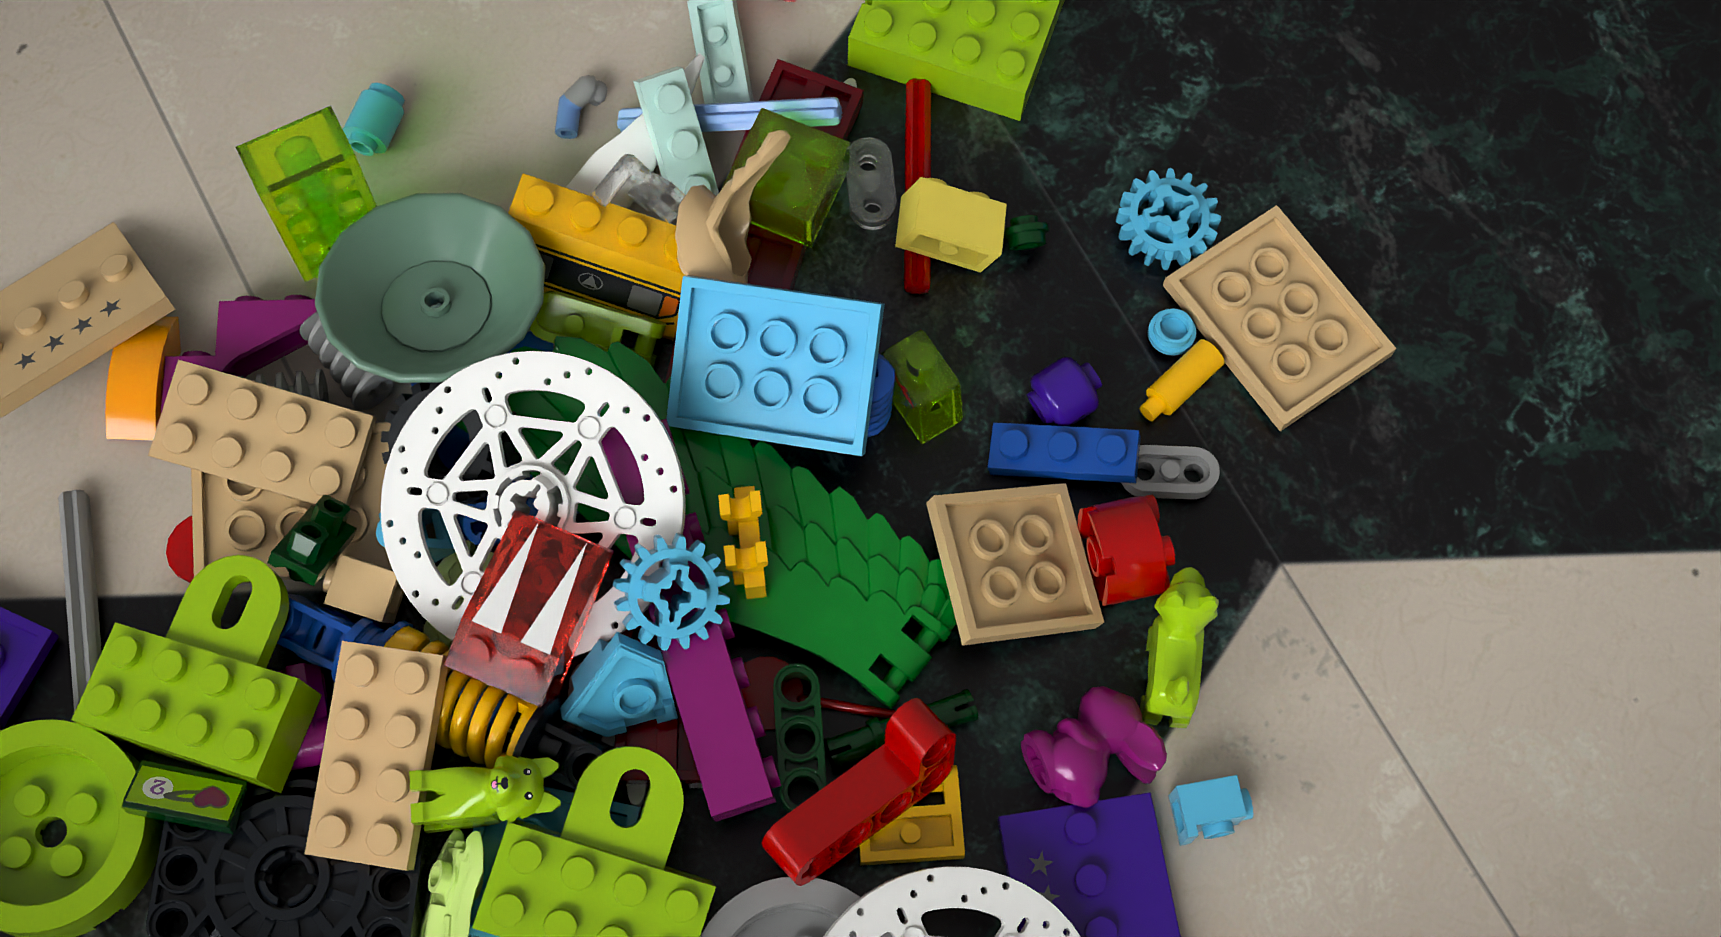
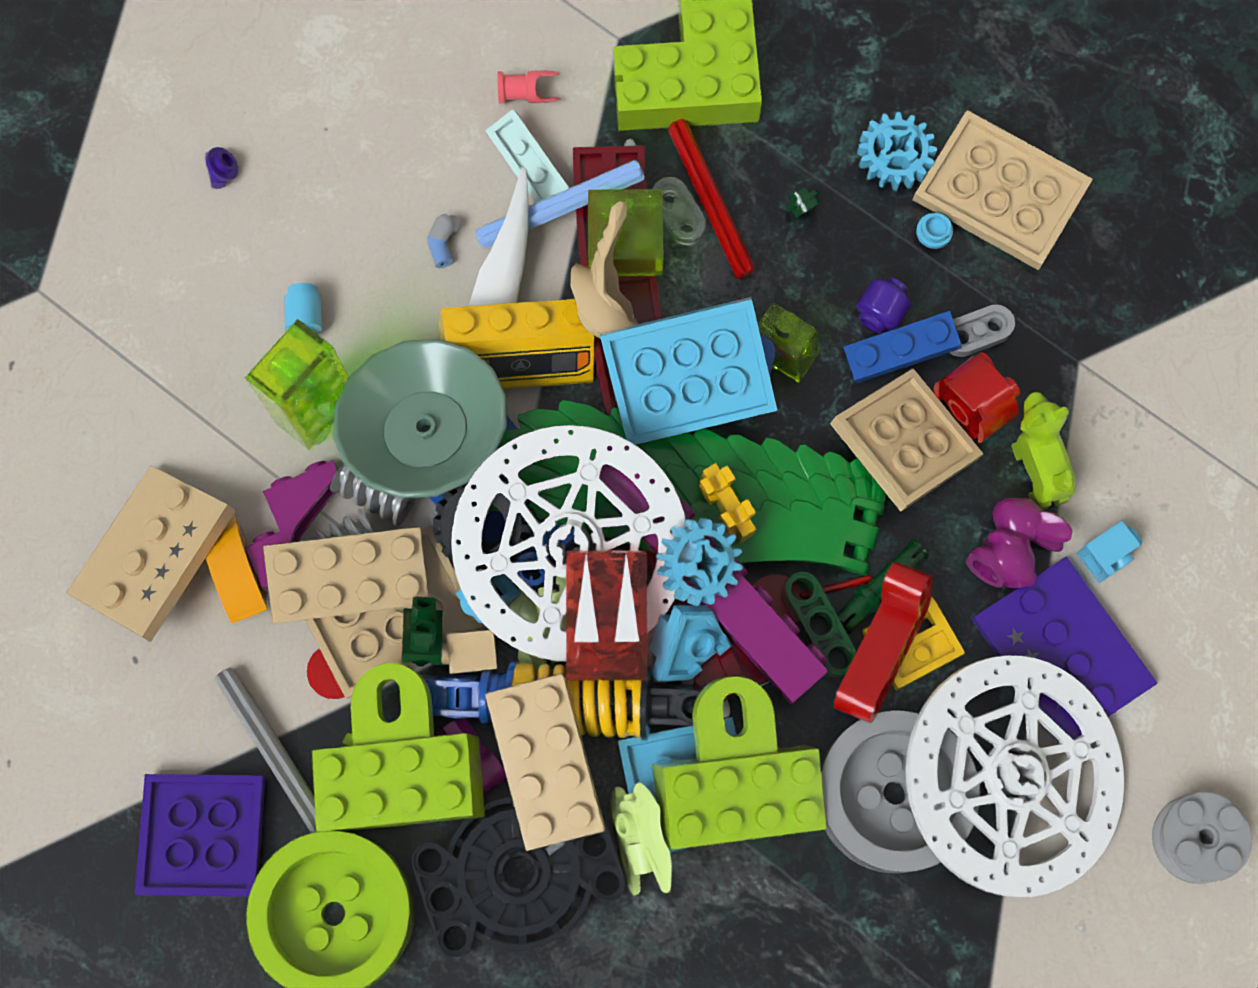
camera: 20 degrees left, 5 degrees up
(185, 797) = (423, 848): slope -> none
(482, 795) = (653, 745): lime animal -> none
(595, 323) = (543, 393): lime plate -> none
(647, 189) = (530, 282): clear plate -> none
(675, 130) = (533, 237): light aqua plate -> none
(951, 224) = (752, 217): light yellow brick -> none
(1182, 380) = (957, 261): yellow cylinder -> none

